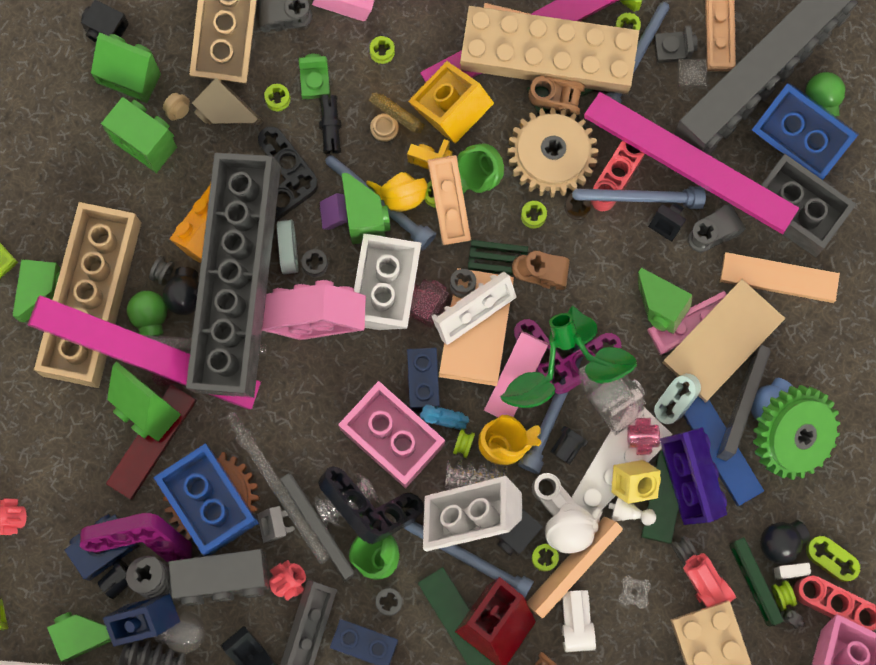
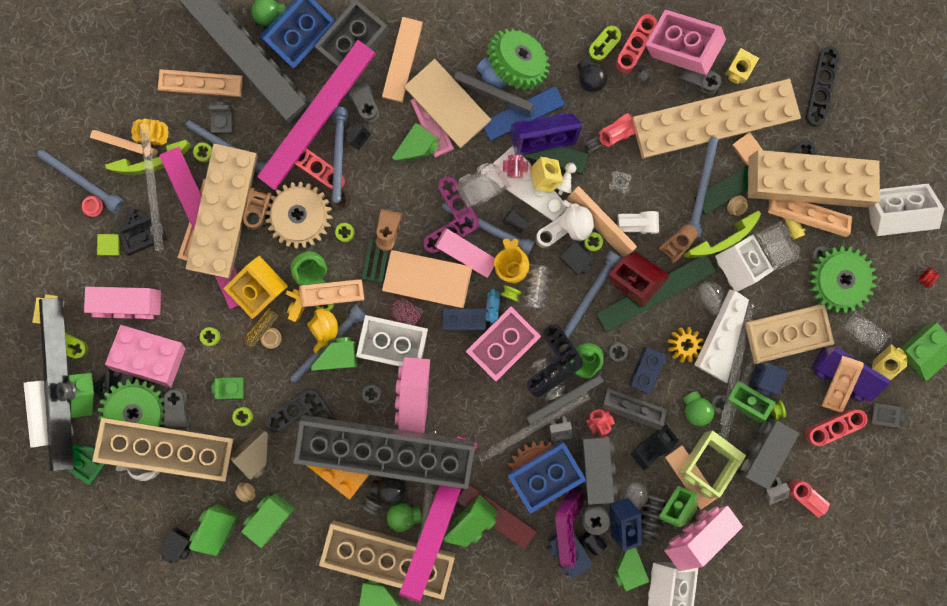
camera: 90 degrees left, 10 degrees up
(287, 246) = (359, 413): light aqua beam -> none
(330, 124) = (266, 378): black pin -> none
(333, 211) = (334, 378): medium lavender tile -> none
(465, 275) = (389, 284): dark grey bush -> none
(471, 513) = (565, 291): white slope -> none
(474, 307) = (415, 279): white plate -> none
(567, 331) = (436, 213): green plant -> none
(672, 395) = (491, 137): light aqua beam -> none
(692, 73) = (243, 108): clear tile -> none
(756, 582) = (618, 98): dark green tile -> none
(784, 595) = (628, 79): lime bush -> none
(792, 571) = (612, 72): white tile -> none

